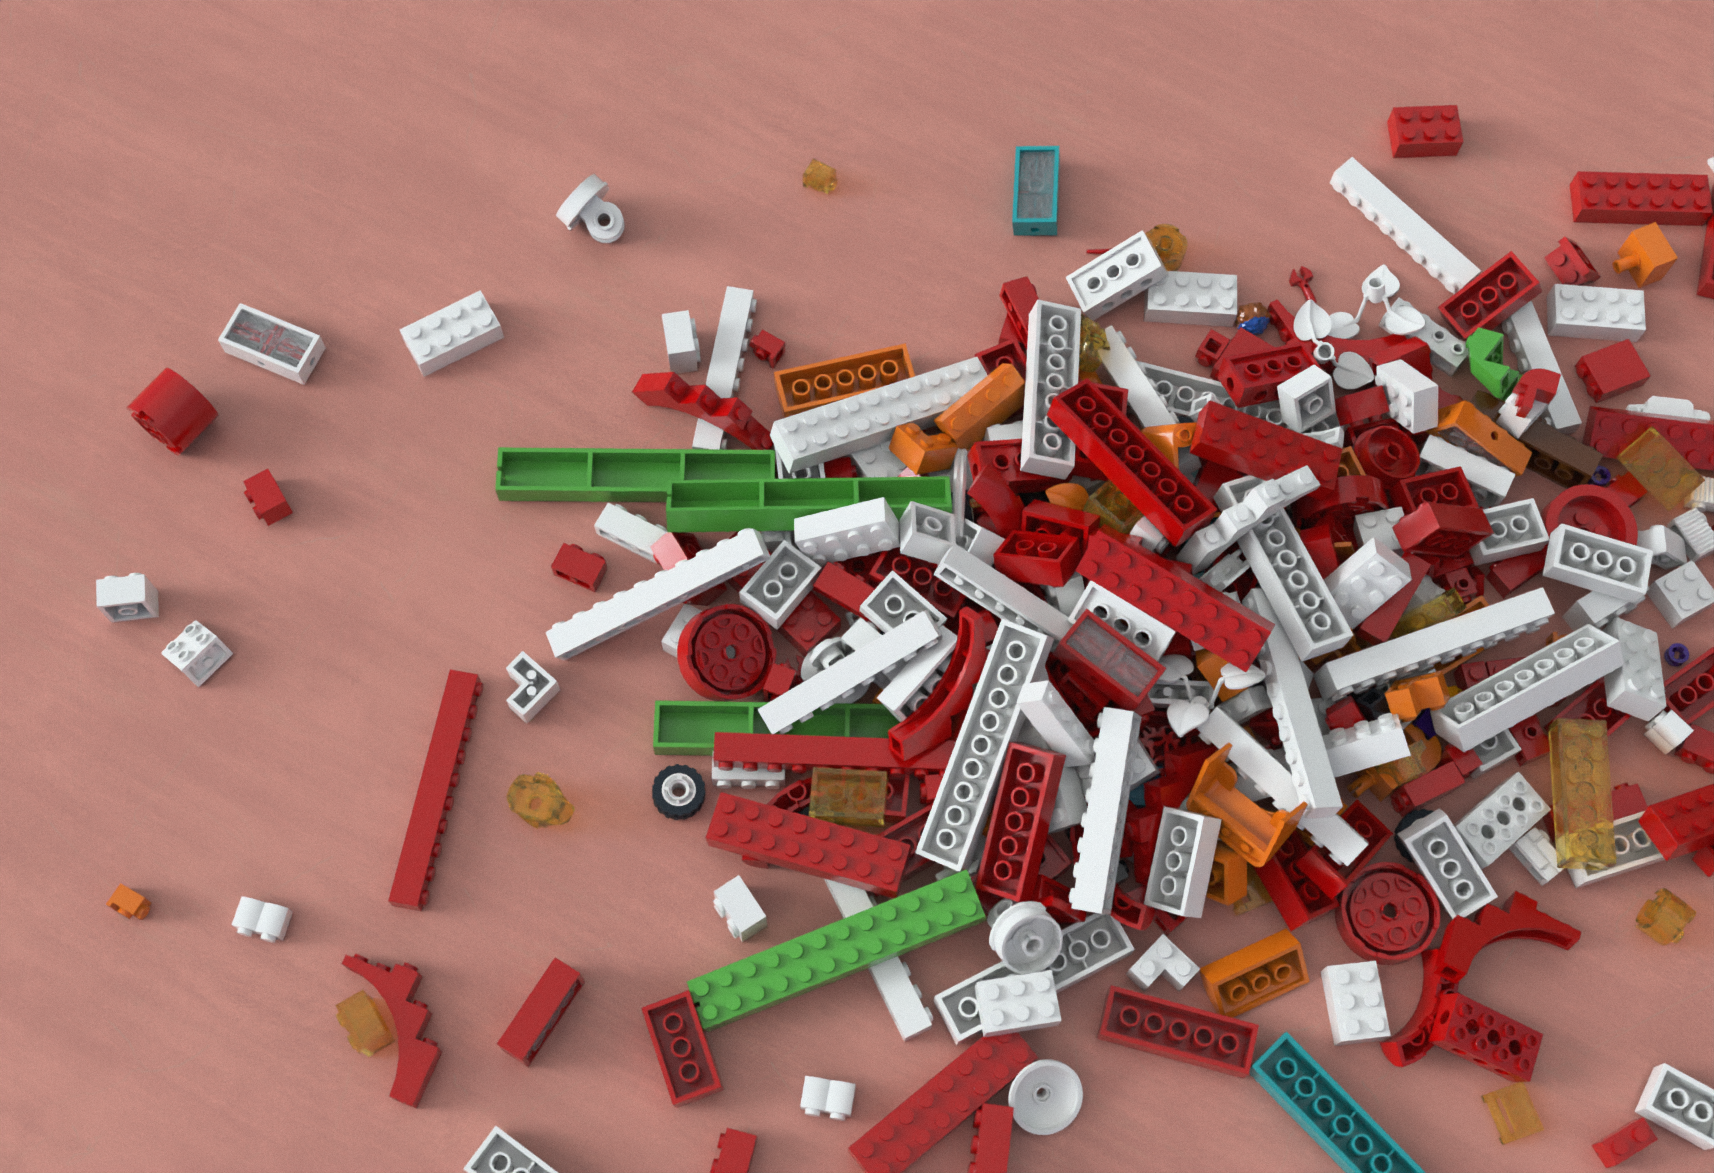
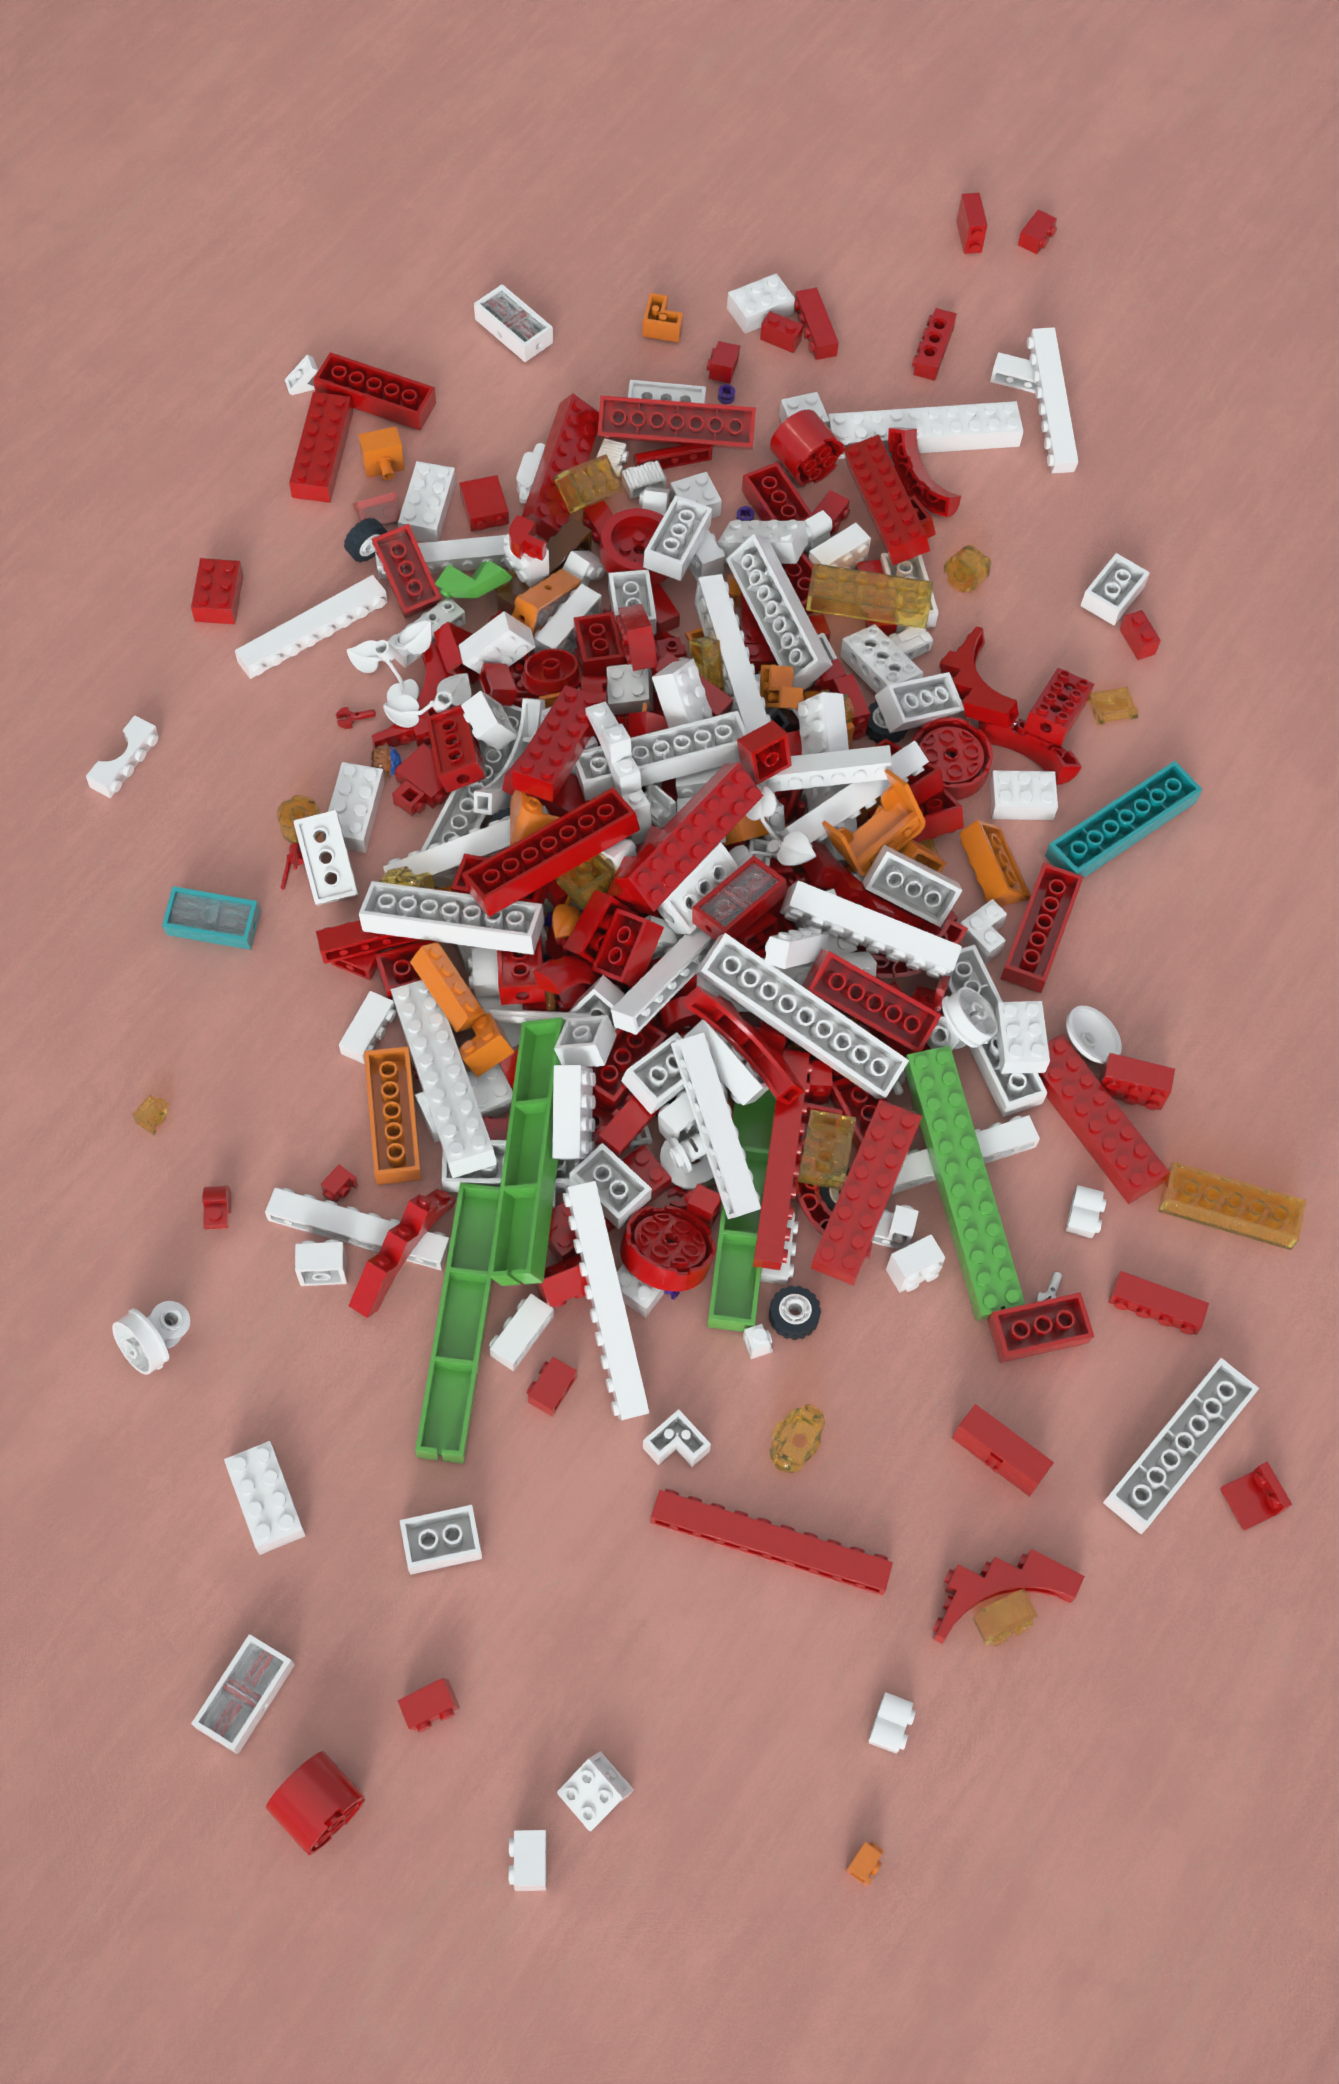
camera: 85 degrees left, 5 degrees down
(419, 486) = (440, 1539): none -> white brick
(643, 757) = (757, 1341): none -> white brick
(731, 243) = (216, 1207): none -> red brick
(732, 1065) = (1052, 1289): none -> white bar
(781, 888) = (896, 1228): none -> white brick
(938, 347) = (367, 1026): none -> white brick
(1226, 94) = (109, 775): none -> white arch
(1300, 666) = (764, 752): none -> red brick
(1528, 252) = (359, 542): none -> black wheel
(1544, 477) = (584, 566): none -> white brick
(1642, 761) = (843, 549): none -> white brick

